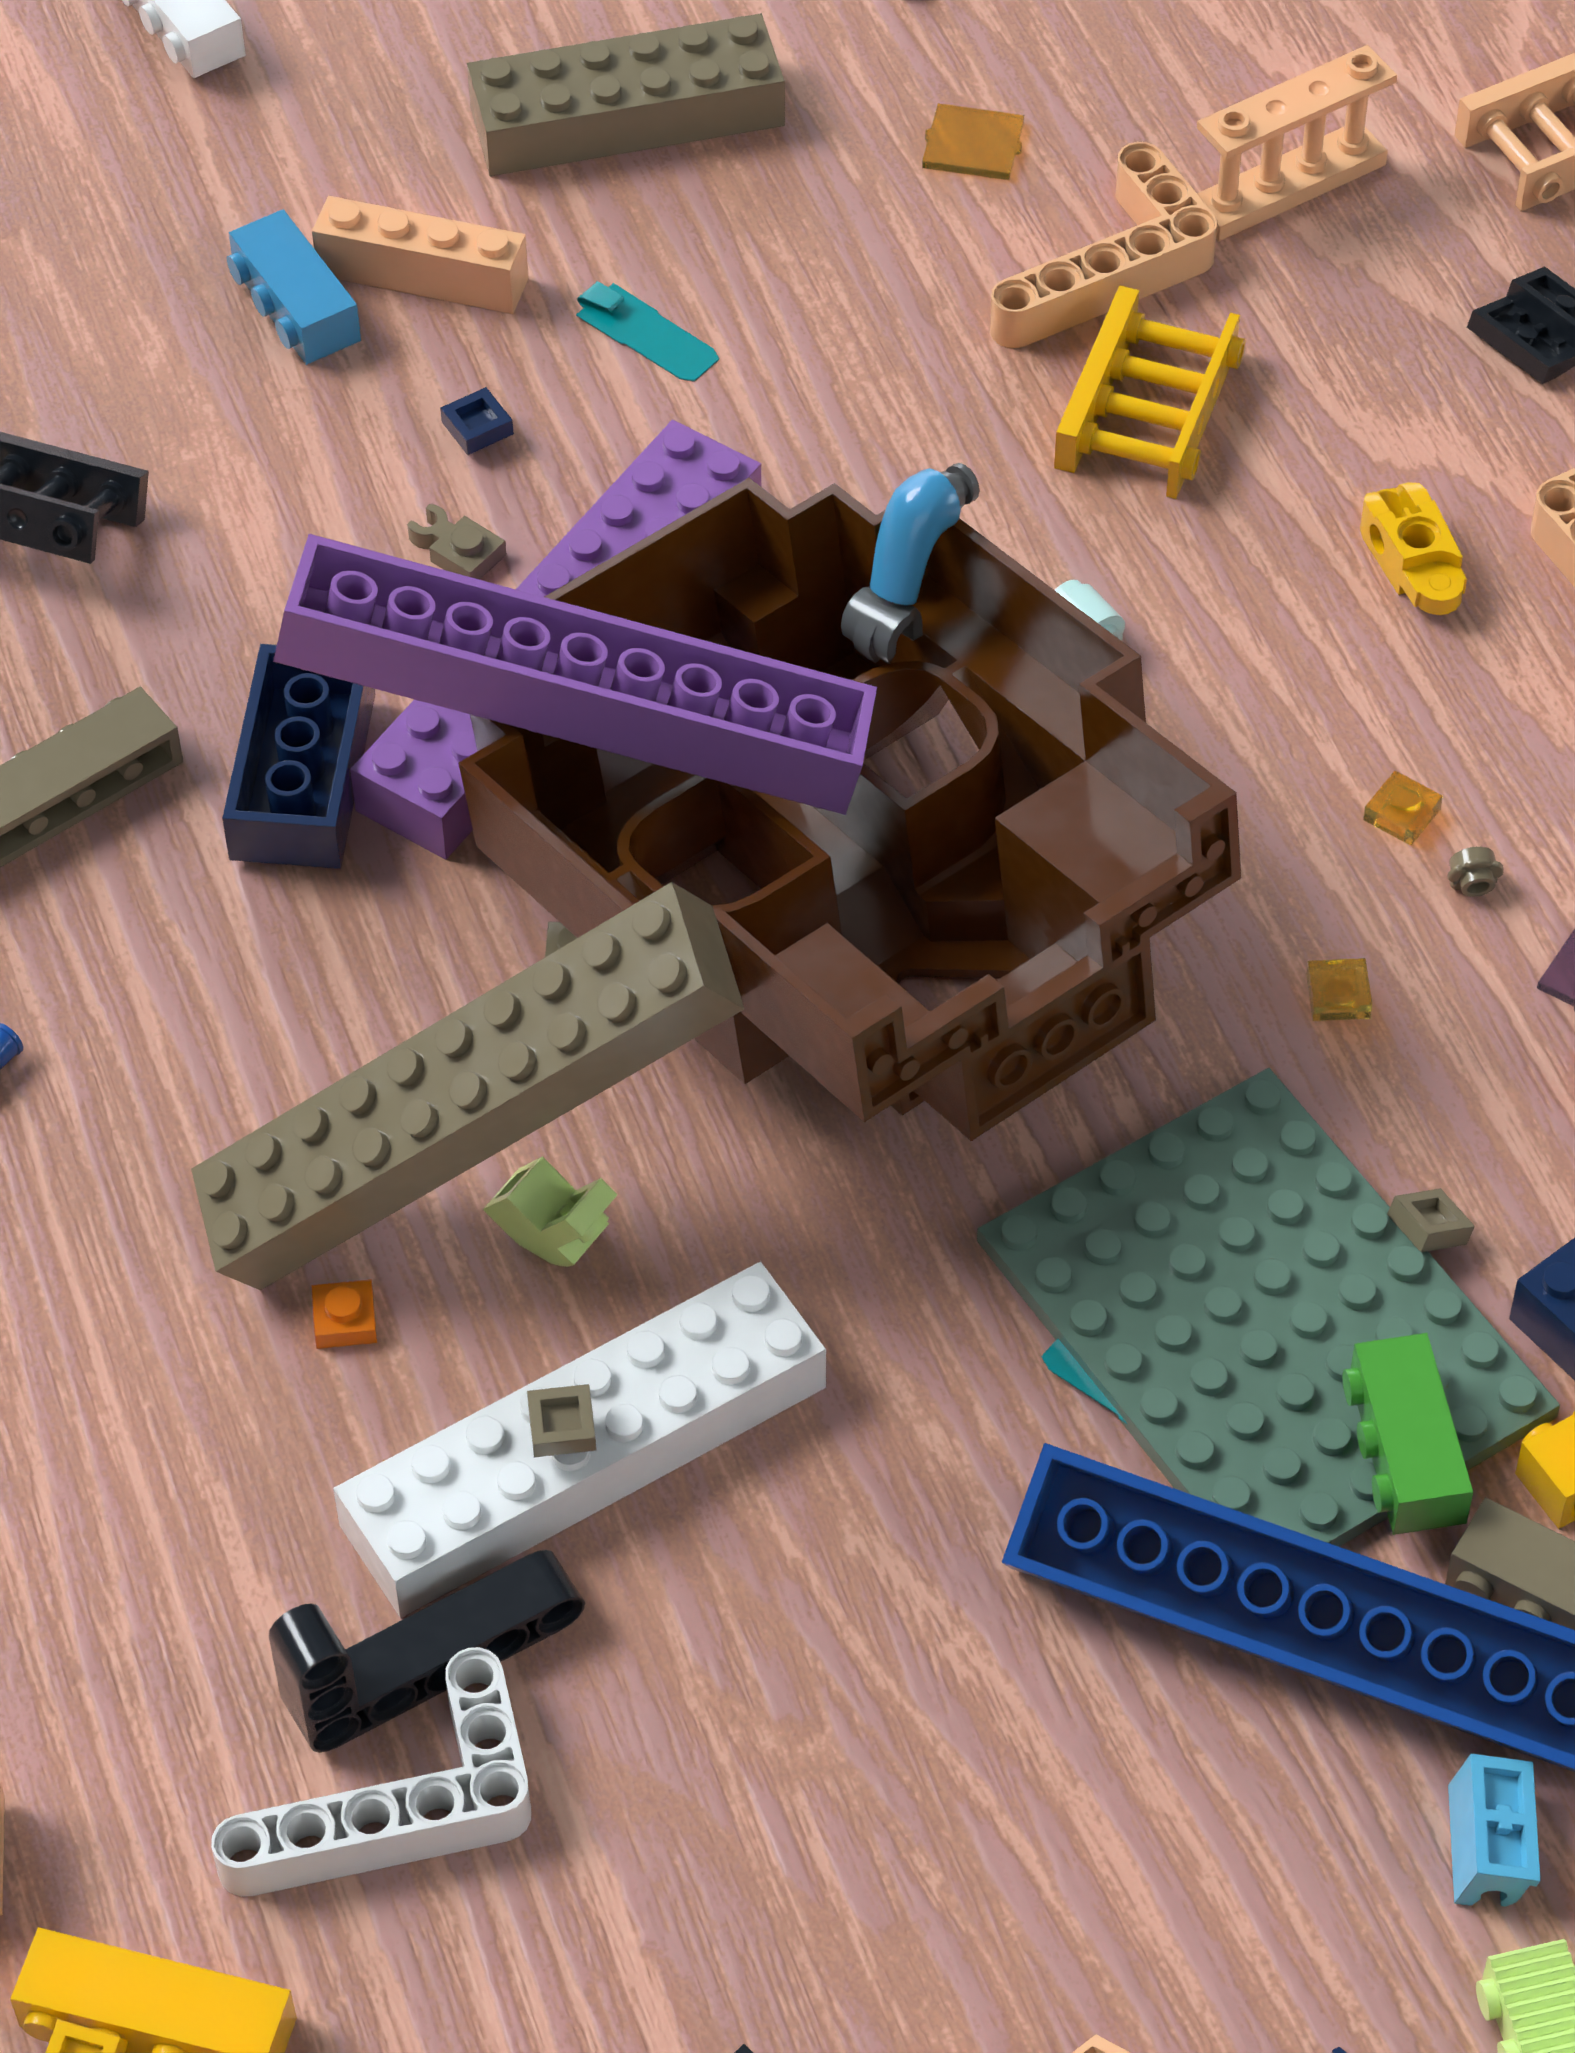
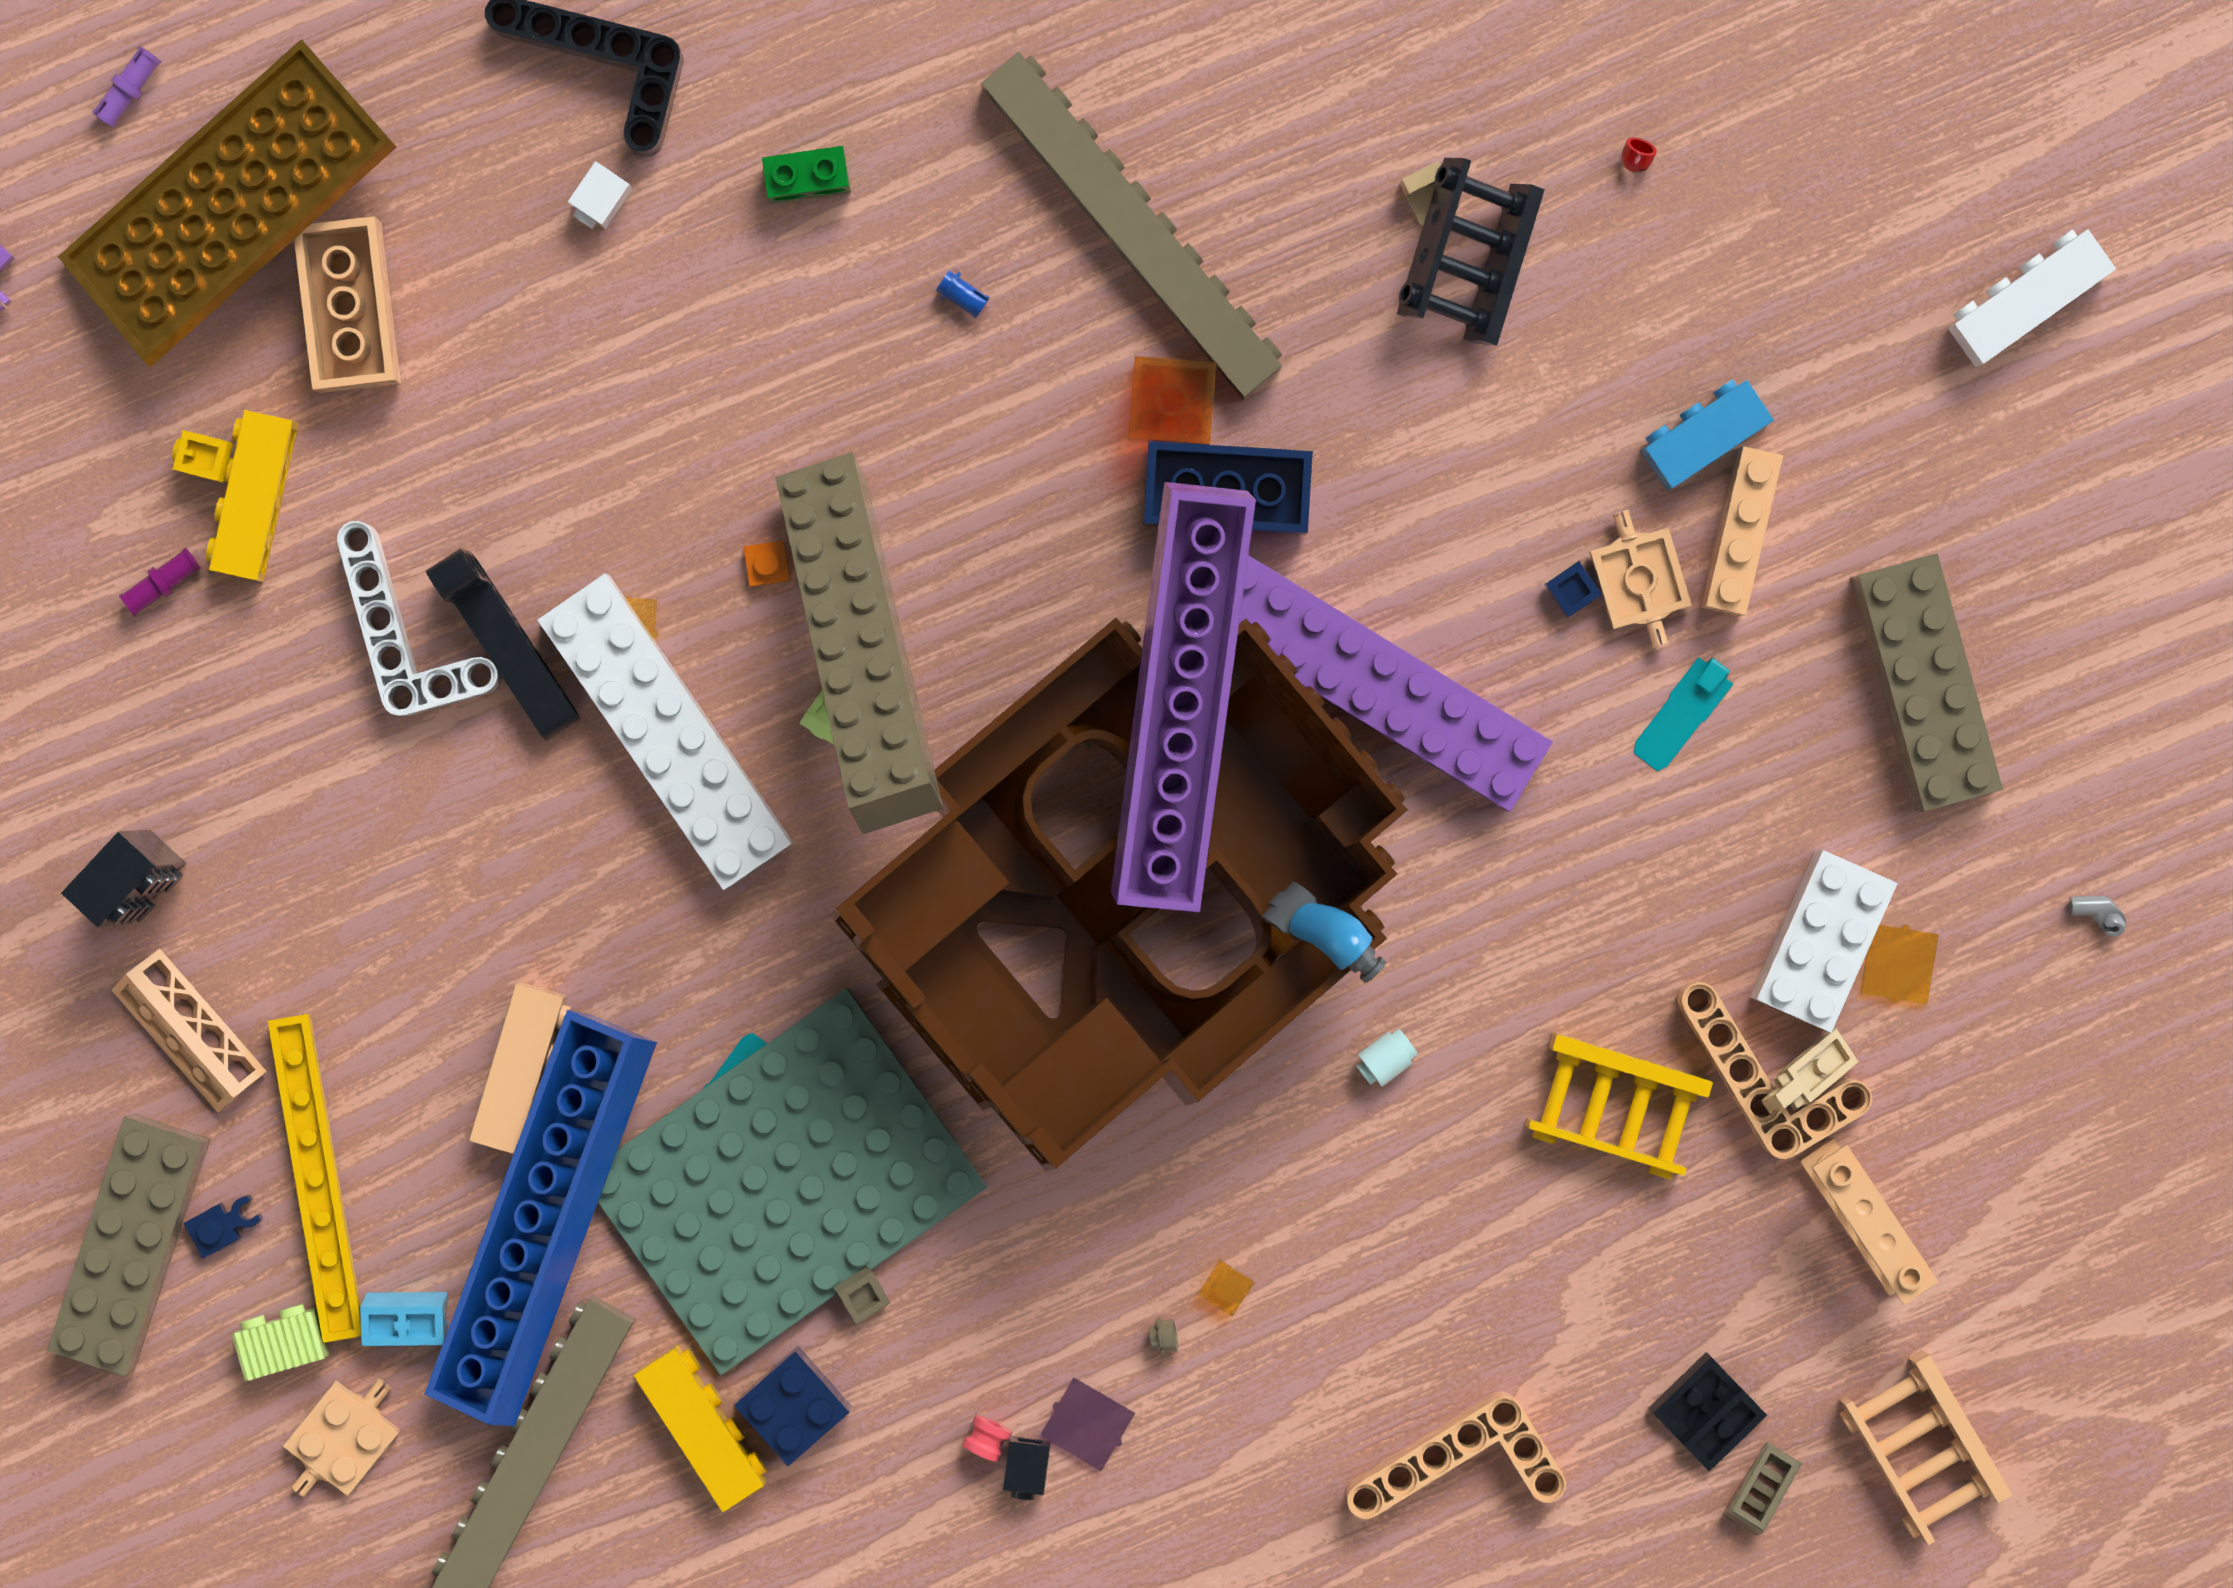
camera: 90 degrees right, 35 degrees up
(169, 812) = (1171, 400): none -> clear orange brick
(458, 547) = (1450, 588): dark tan plate -> none
(469, 352) = (1640, 578): none -> light nougat plate
(561, 1420) = (644, 720): dark tan plate -> none
(941, 193) = (1823, 940): none -> white brick
(1092, 1655) = (518, 1065): none -> light nougat brick
(1108, 199) = (1811, 1073): none -> tan hinge
(1263, 1958) = (316, 1177): none -> yellow plate
(1339, 989) = (1055, 1237): clear yellow plate -> none
(1408, 1434) = (674, 1273): bright green brick -> none
(1414, 547) = (1433, 1314): yellow piece -> none

